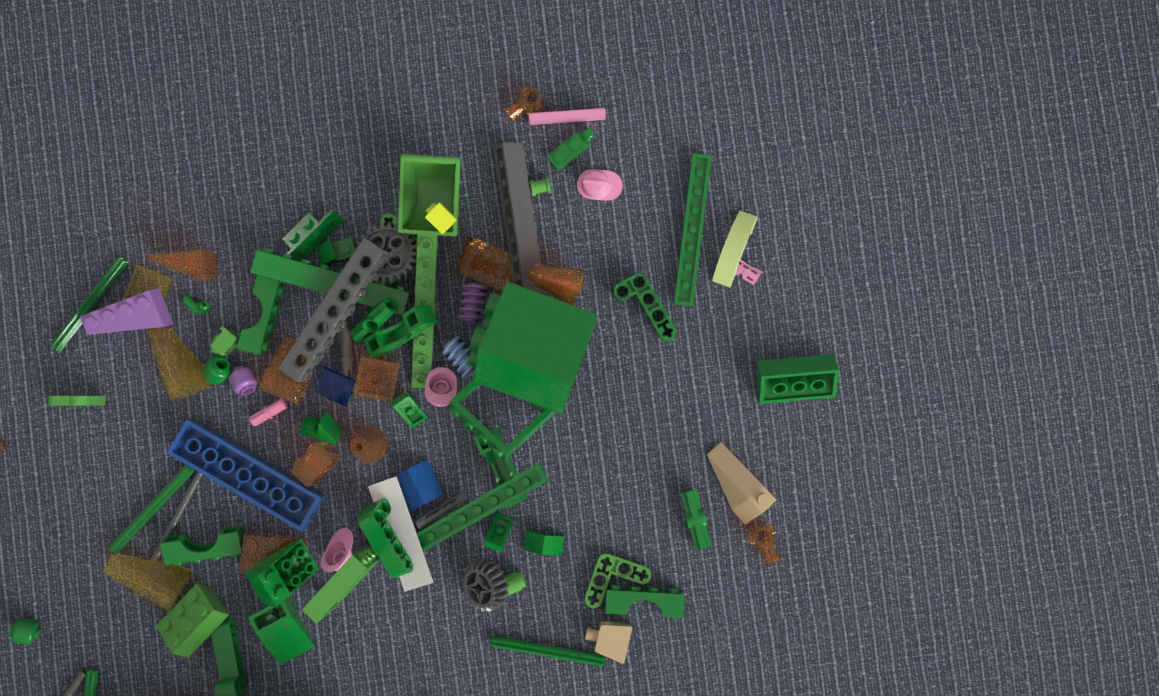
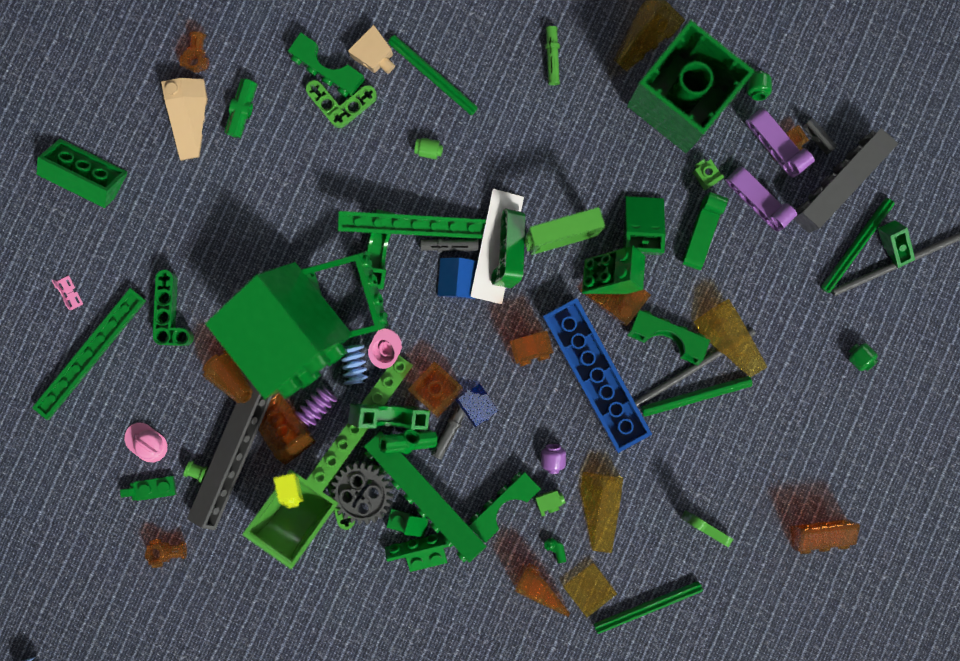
camera: 155 degrees left, 0 degrees up
(133, 313) = (611, 573): medium lavender wedge -> none
(192, 620) = (713, 279): bright green brick -> none
(216, 370) = (569, 481): green head -> none
(268, 412) = (548, 418): bright pink axle -> none
(277, 382) = (507, 443): clear orange slope -> none
(324, 314) = (499, 444): dark grey brick -> none
(324, 430) = (509, 373): green slope -> none
(338, 550) = (557, 263): bright pink piece -> none
(367, 445) = (478, 348): clear orange cone -> none
(409, 409) = (425, 346): green slope -> none
(484, 585) = (455, 158): dark grey gear -> none
(498, 532) = (412, 197): green slope -> none
(543, 543) = (381, 166): green slope -> none
(567, 116) = (134, 519): bright pink tile -> none
(734, 248) = (64, 315): yellowish green slope -> none

